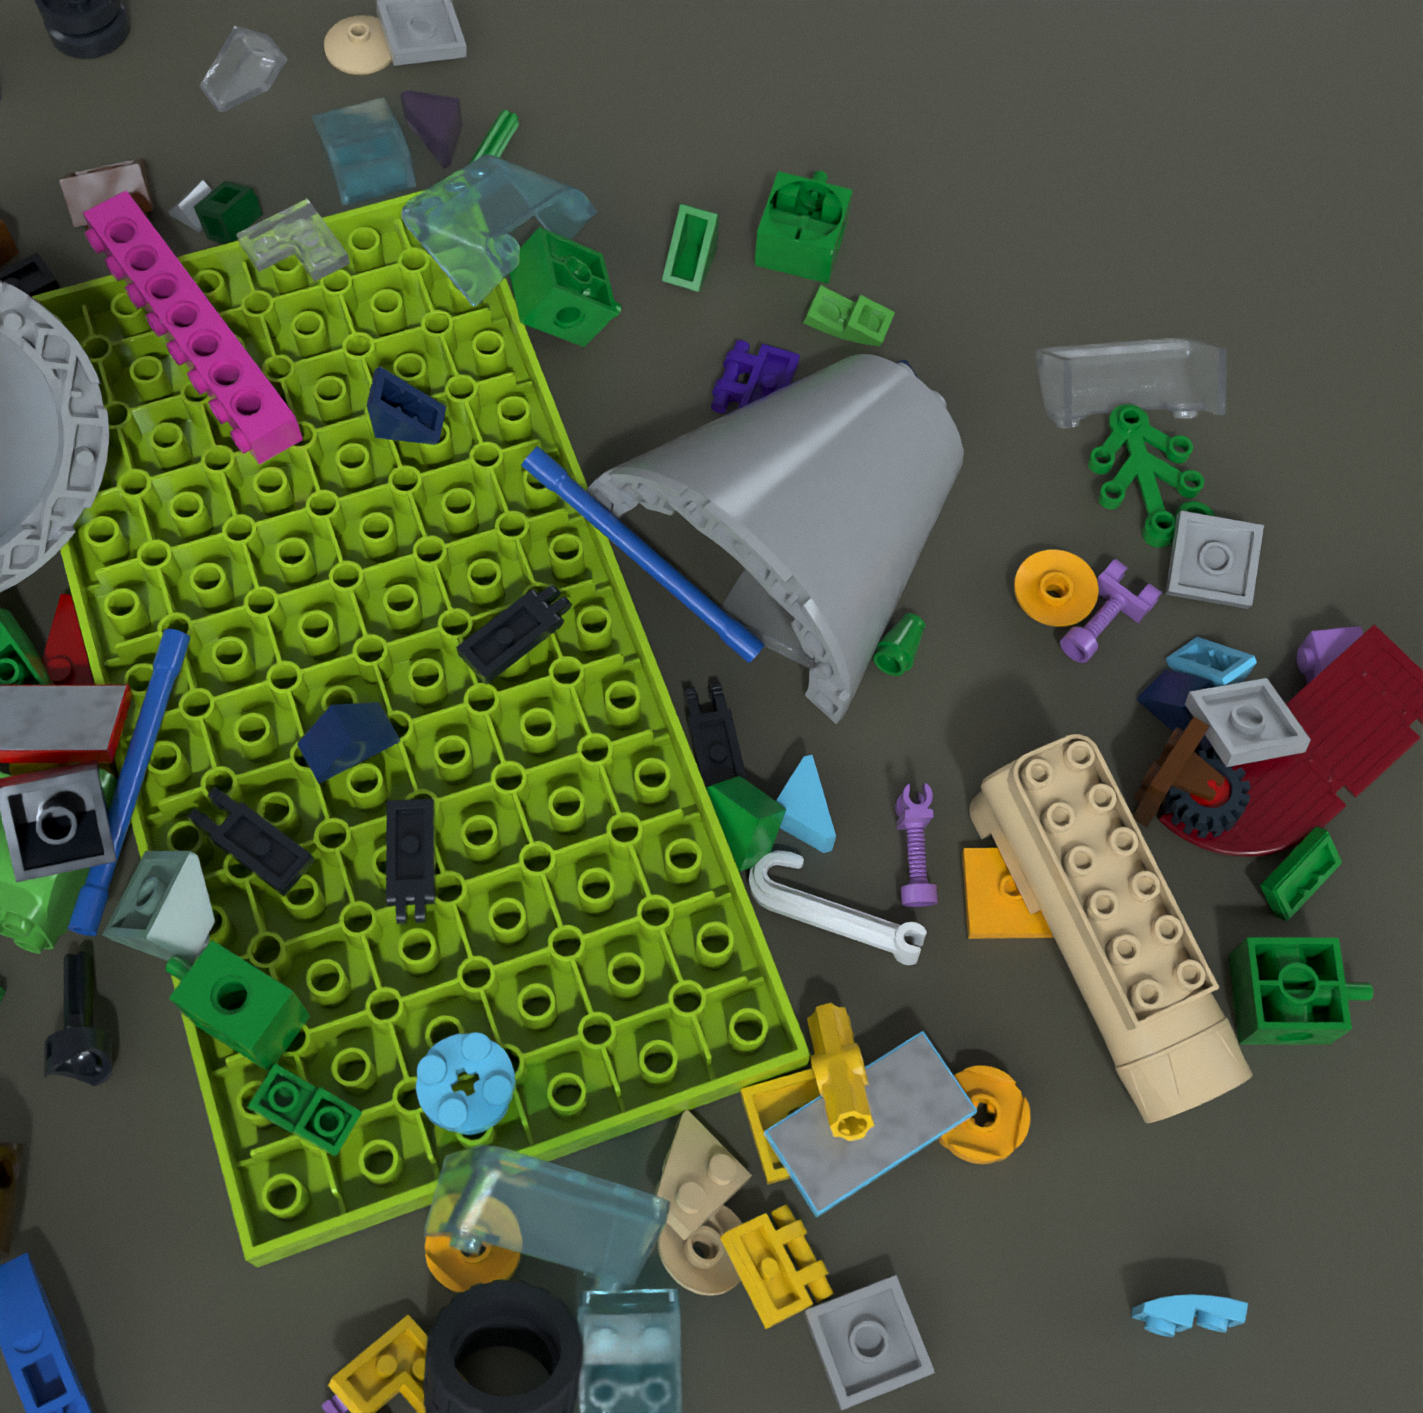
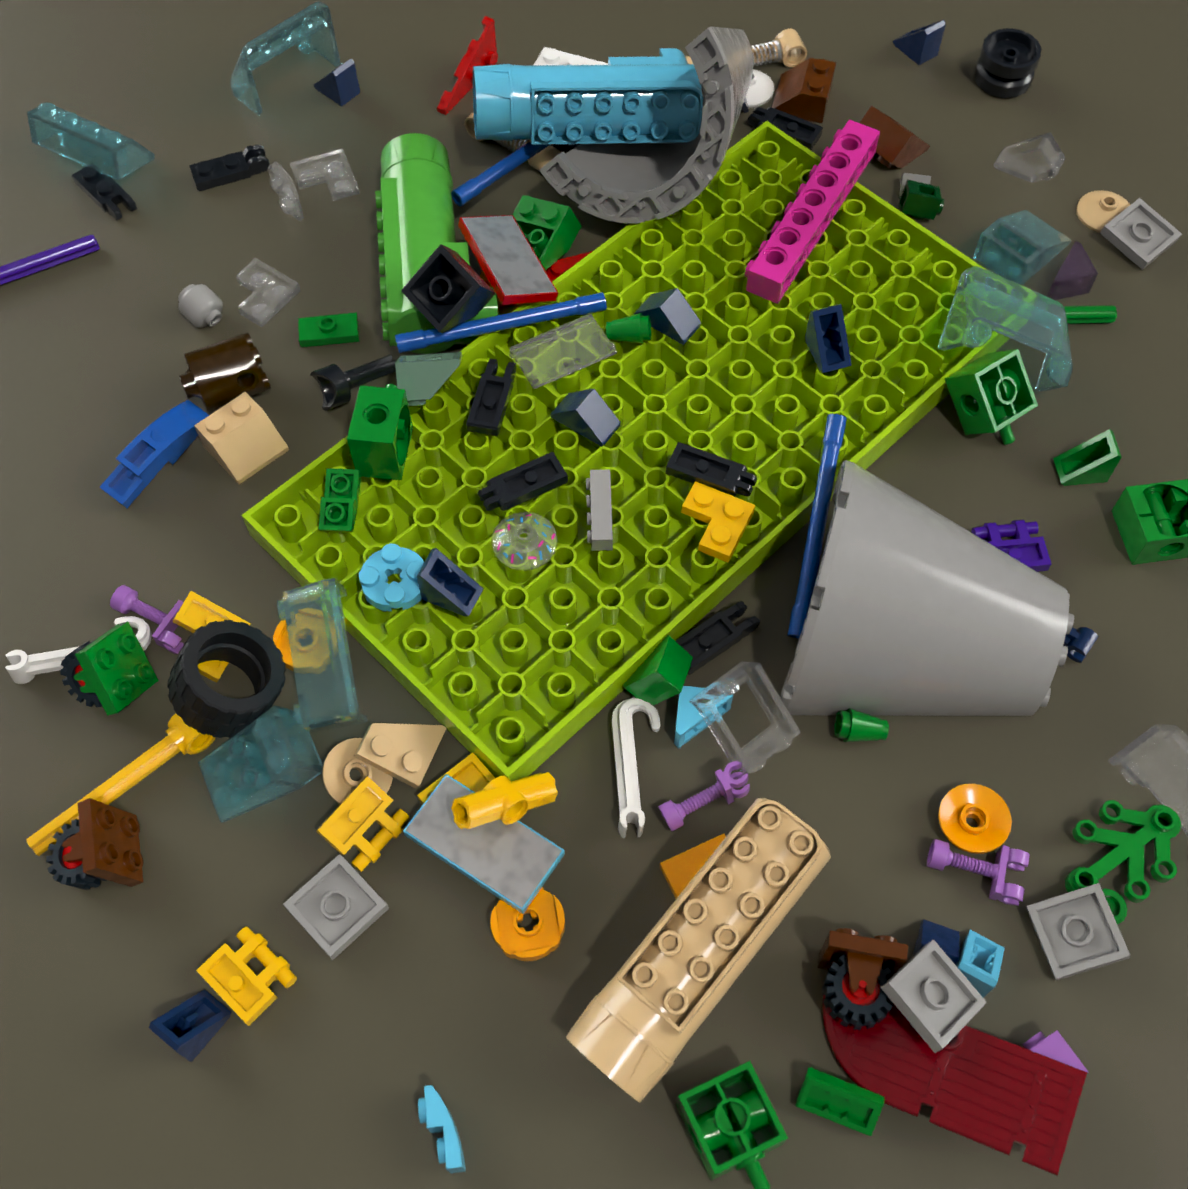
camera: 70 degrees right, 5 degrees down
(88, 1221) = (241, 438): none -> tan slope
(222, 736) = (545, 355): none -> clear door
(245, 623) = (630, 329): none -> green cone
(246, 569) = (671, 315): none -> slope
(297, 232) = (918, 230): clear plate -> none
(495, 916) = (528, 551): none -> clear dish
(499, 783) = (601, 510): none -> light grey piece
(520, 1015) = (447, 585): none -> dark blue slope
(587, 645) = (724, 514): none -> yellow plate
(849, 320) = (1109, 586): bright green slope -> none
(874, 741) = (771, 740): none -> clear window

